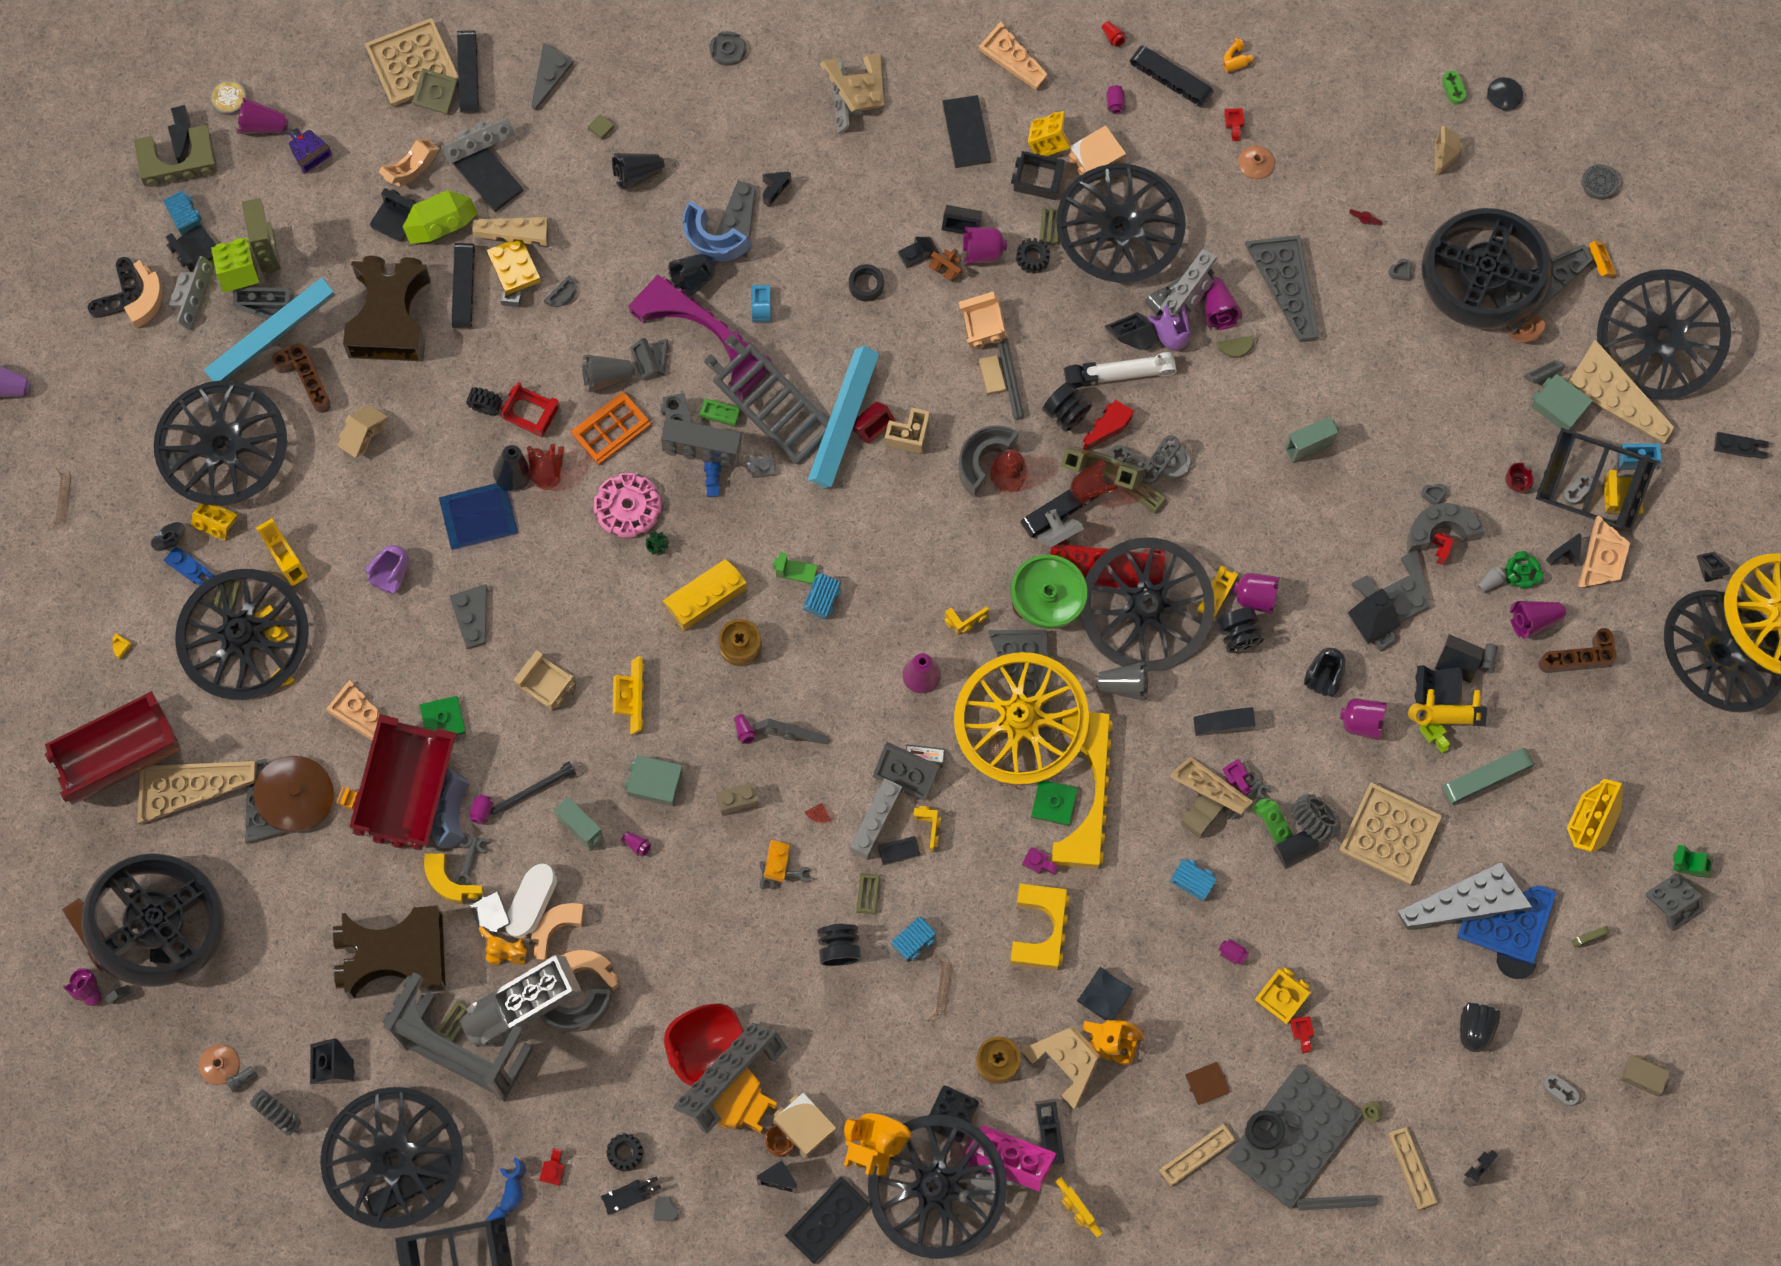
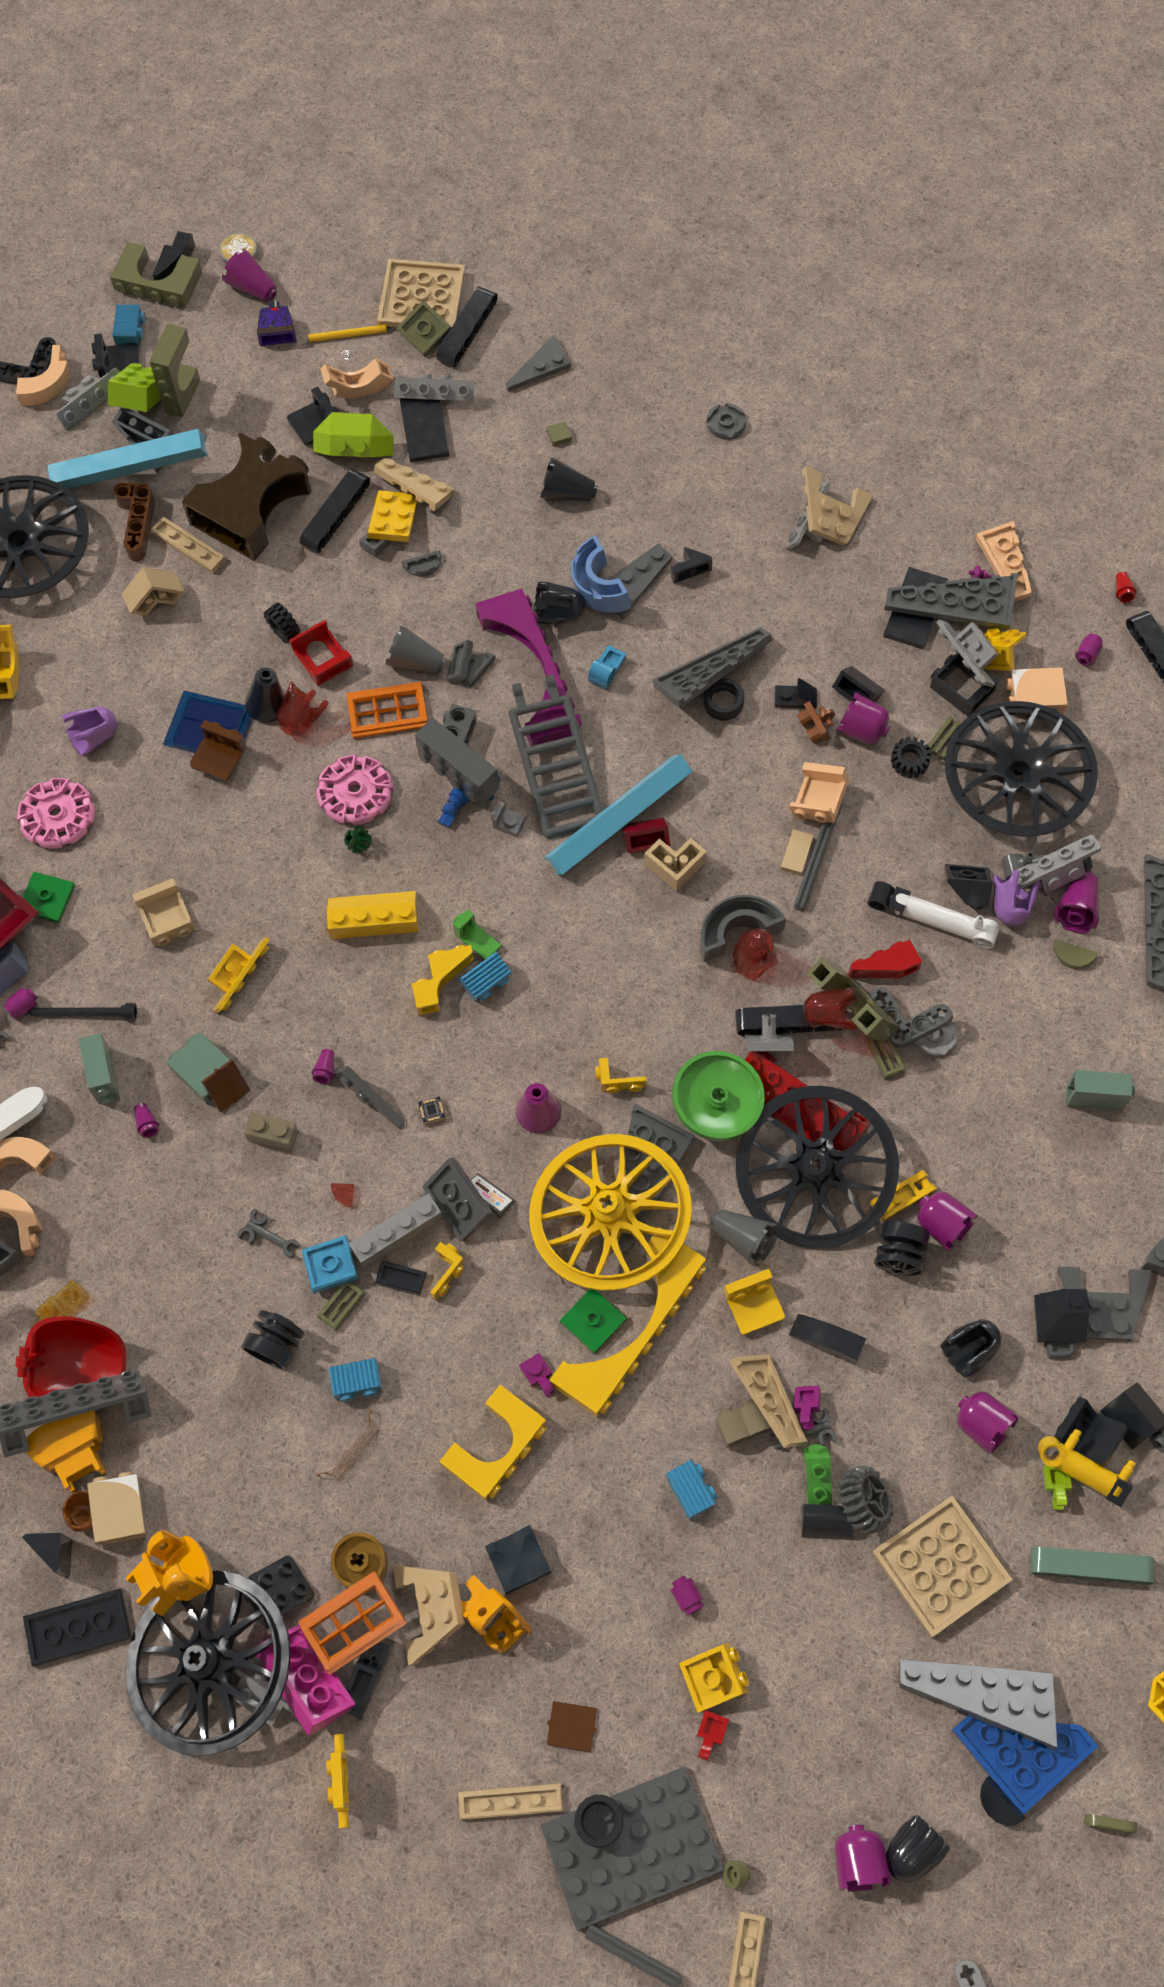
camera: 35 degrees right, 5 degrees down
(360, 376) = (188, 545): none -> tan tile
(369, 127) = (347, 333): none -> yellow bar
(404, 660) = (64, 821): none -> bright pink plate
(471, 614) = (138, 814): dark grey wing -> none
(504, 532) = (218, 751): none -> reddish brown bracket
(664, 1009) = (64, 1302): none -> clear yellow slope
(682, 783) = (225, 1085): none -> reddish brown piece
(720, 412) = (500, 748): bright green plate -> none
(740, 653) = (374, 978): pearl gold wheel -> none
(776, 861) = (269, 1217): light orange plate -> none
(784, 607) = (444, 967): none -> yellow arch
(836, 275) = (696, 676): none -> dark grey wing
(842, 869) = (329, 1264): none -> dark azure plate
(844, 717) = (431, 1110): none -> tile
(998, 79) = (981, 574): none -> magenta hair
(1002, 107) = (963, 600): none -> dark grey wing
(1004, 1093) = (366, 1641): none -> orange piece
(1034, 145) = (973, 648): none -> light grey bracket
(1063, 404) = (853, 920): black wheel -> none
(1159, 726) = (753, 1302): none -> yellow bracket
(1447, 1053) = (861, 1860): none -> magenta cylinder

